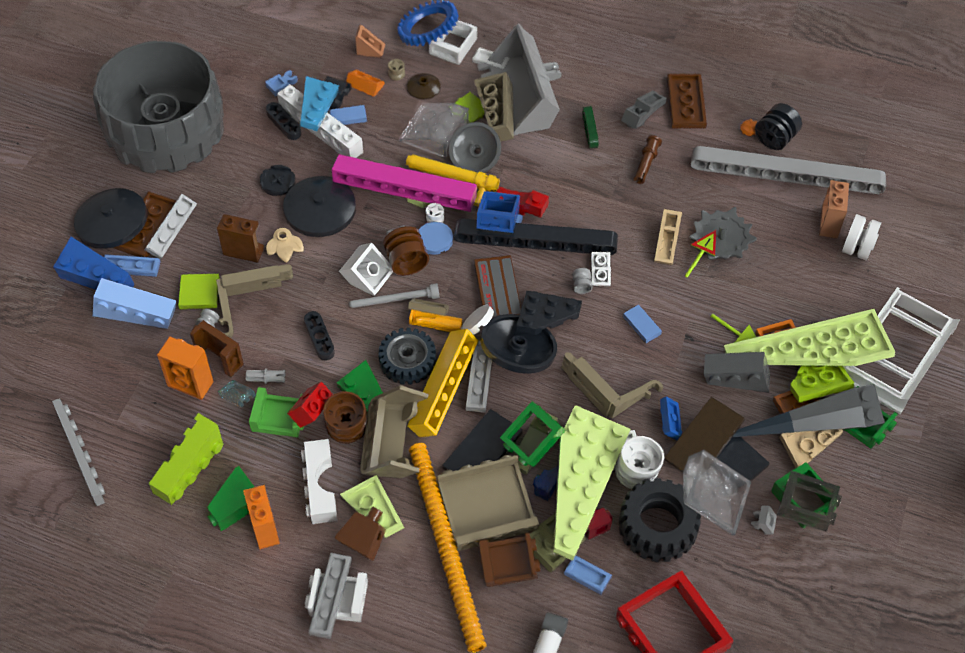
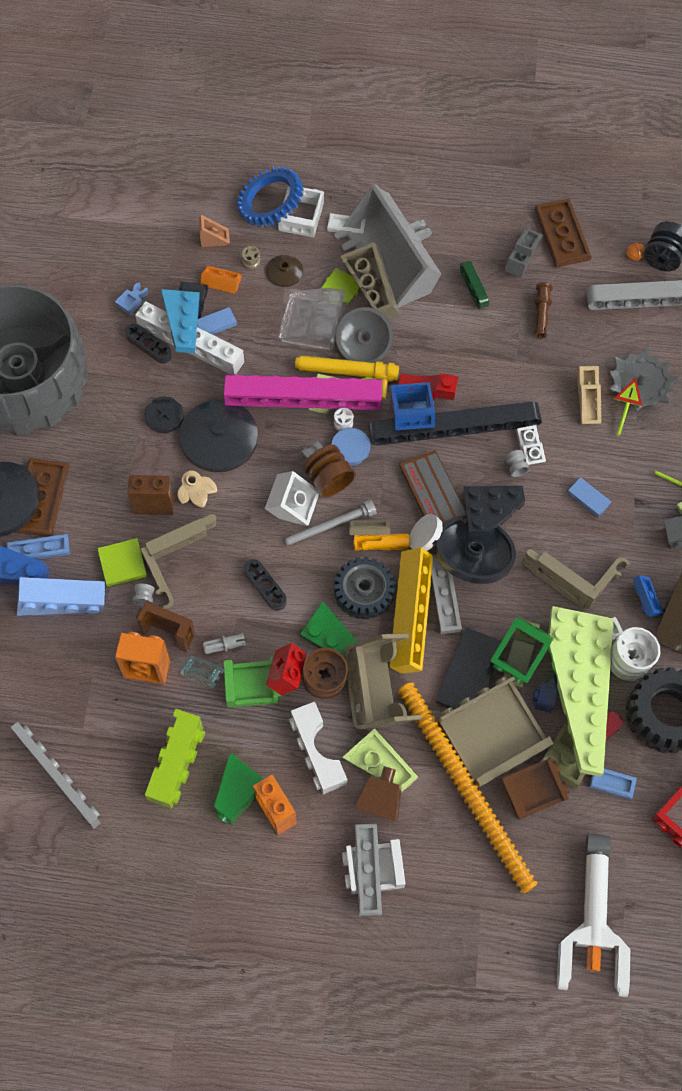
camera: 15 degrees left, 10 degrees up
(170, 226) = (68, 494): tile -> none

